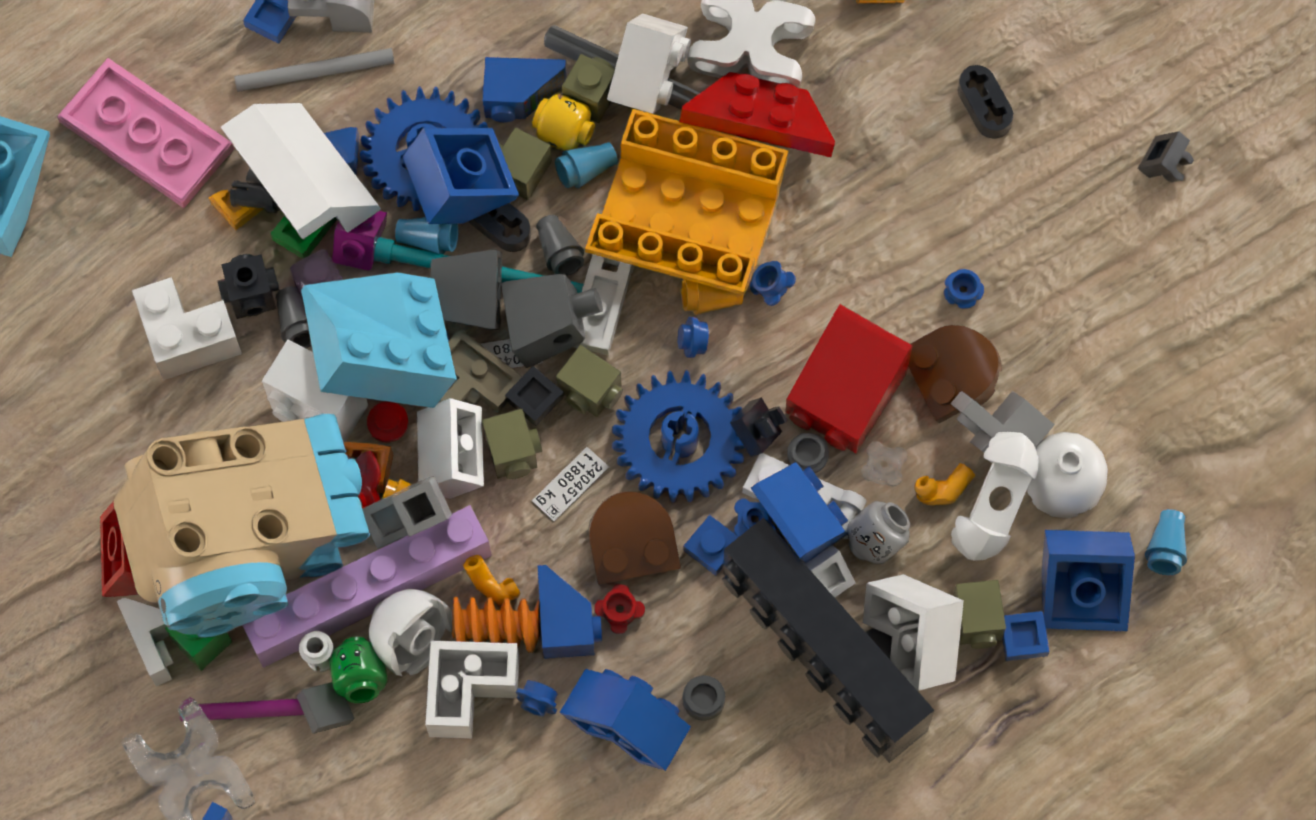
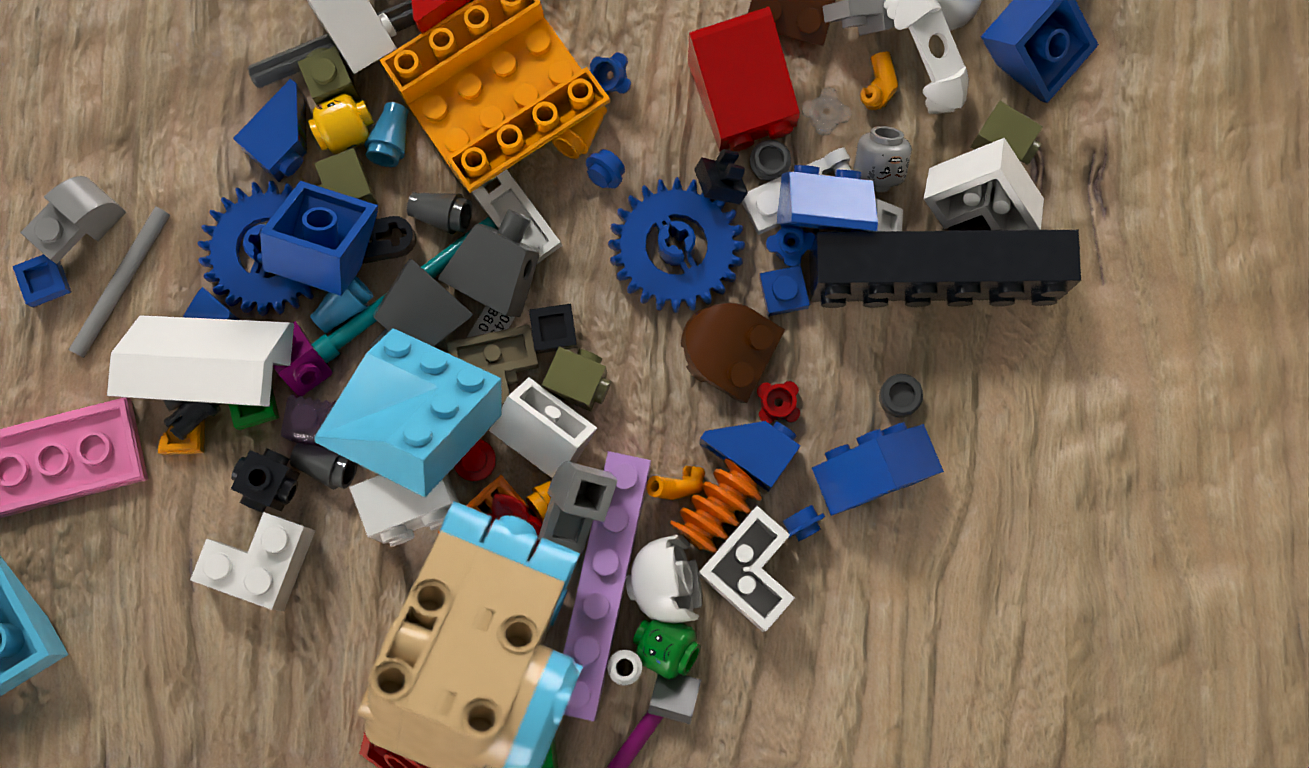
camera: 50 degrees left, 10 degrees up
(570, 483) = (642, 359): white sticker -> none
(589, 382) = (577, 277): olive brick -> none
(1025, 636) = (1052, 116): blue plate -> none

